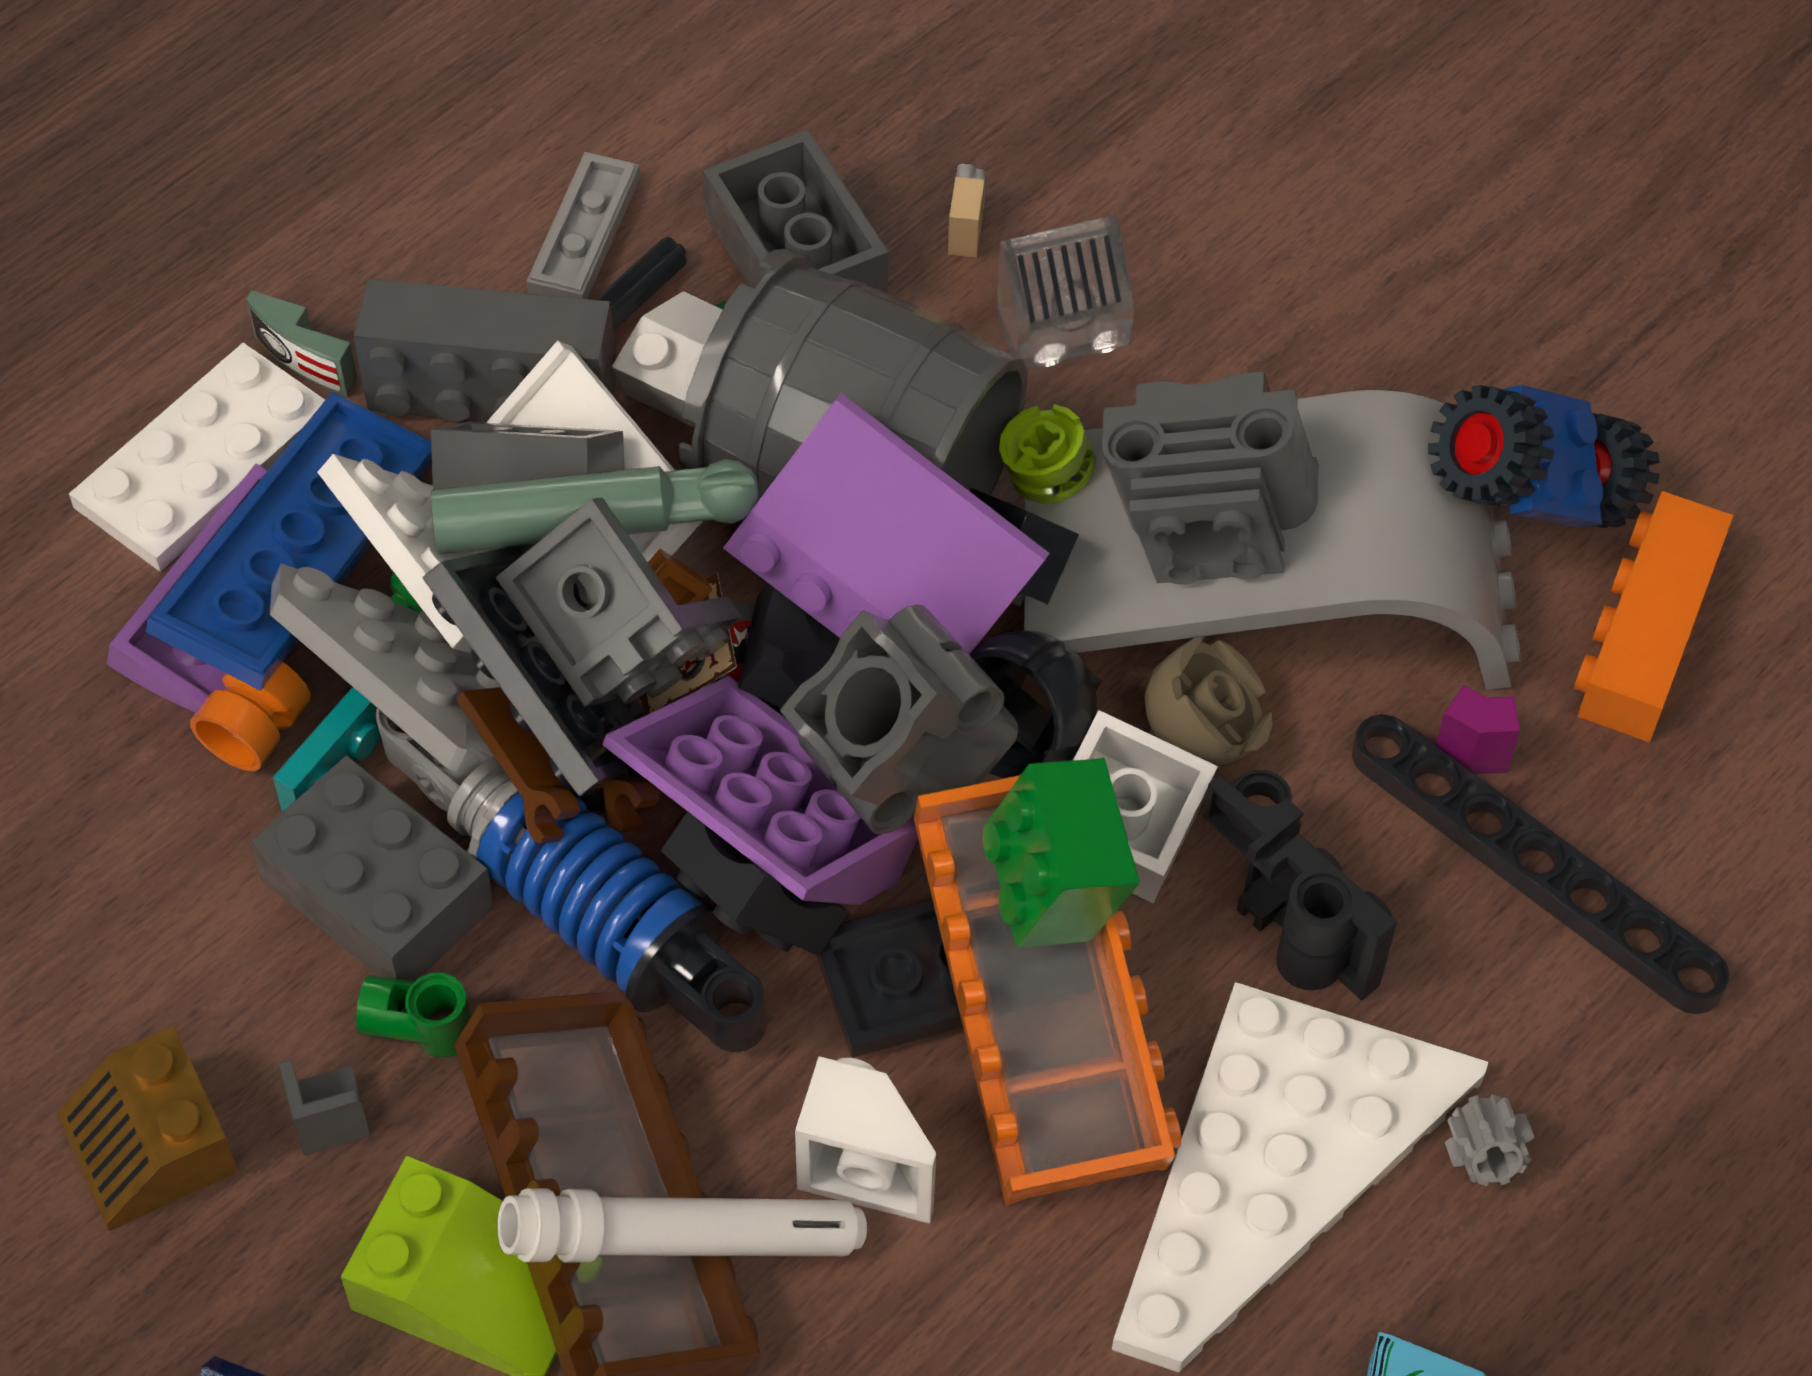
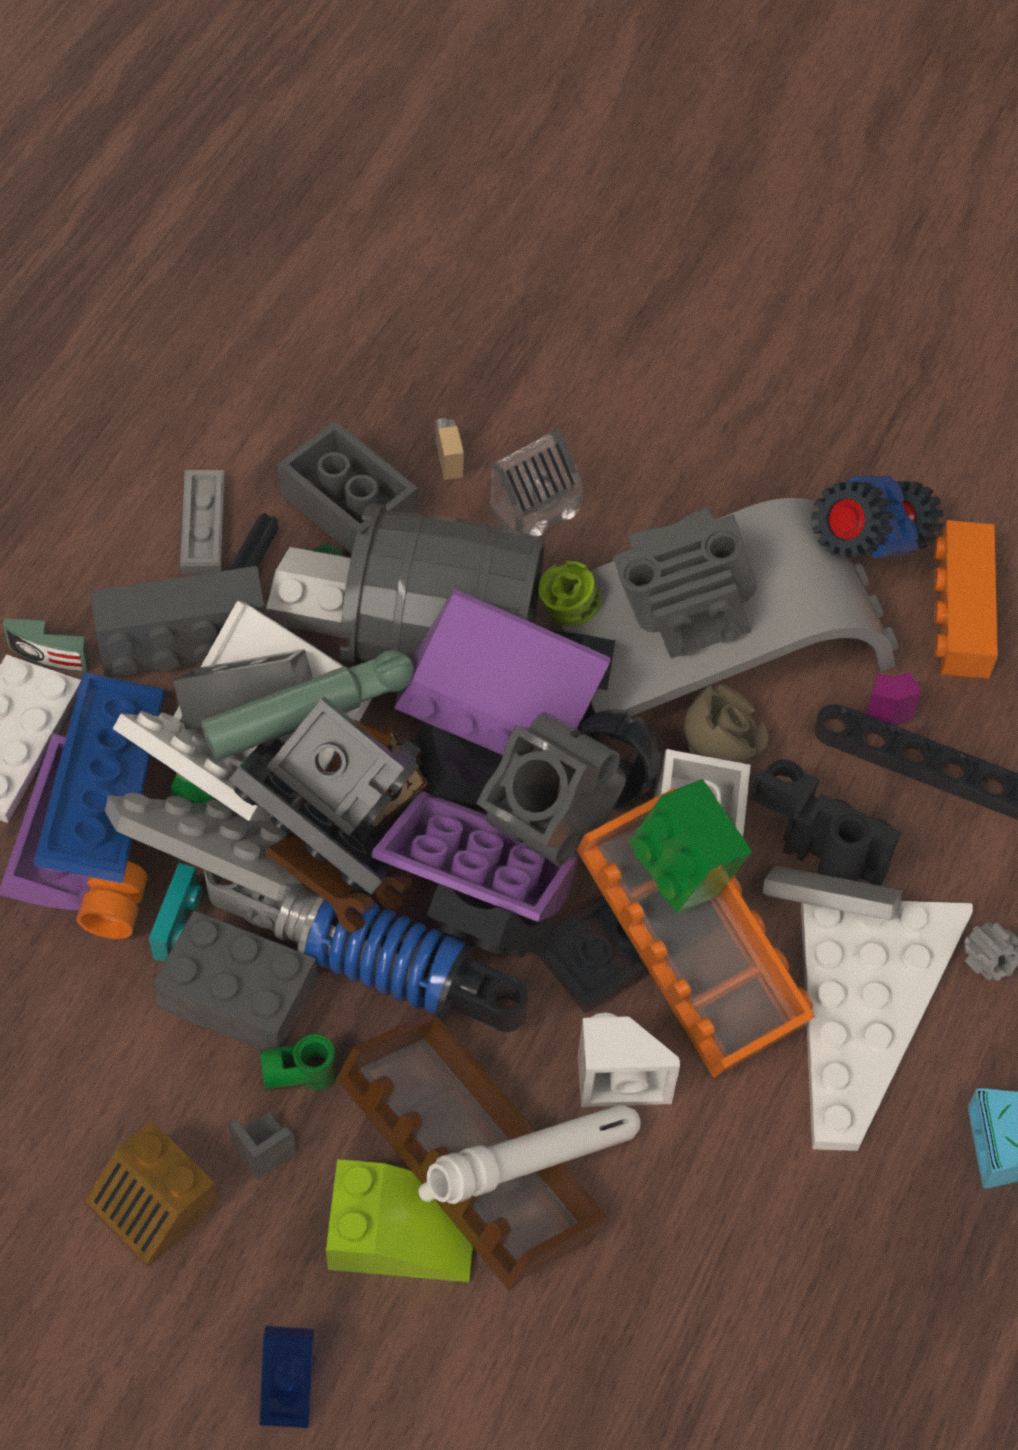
camera: 20 degrees left, 0 degrees up
(1278, 986) = (832, 892): none -> light grey tile

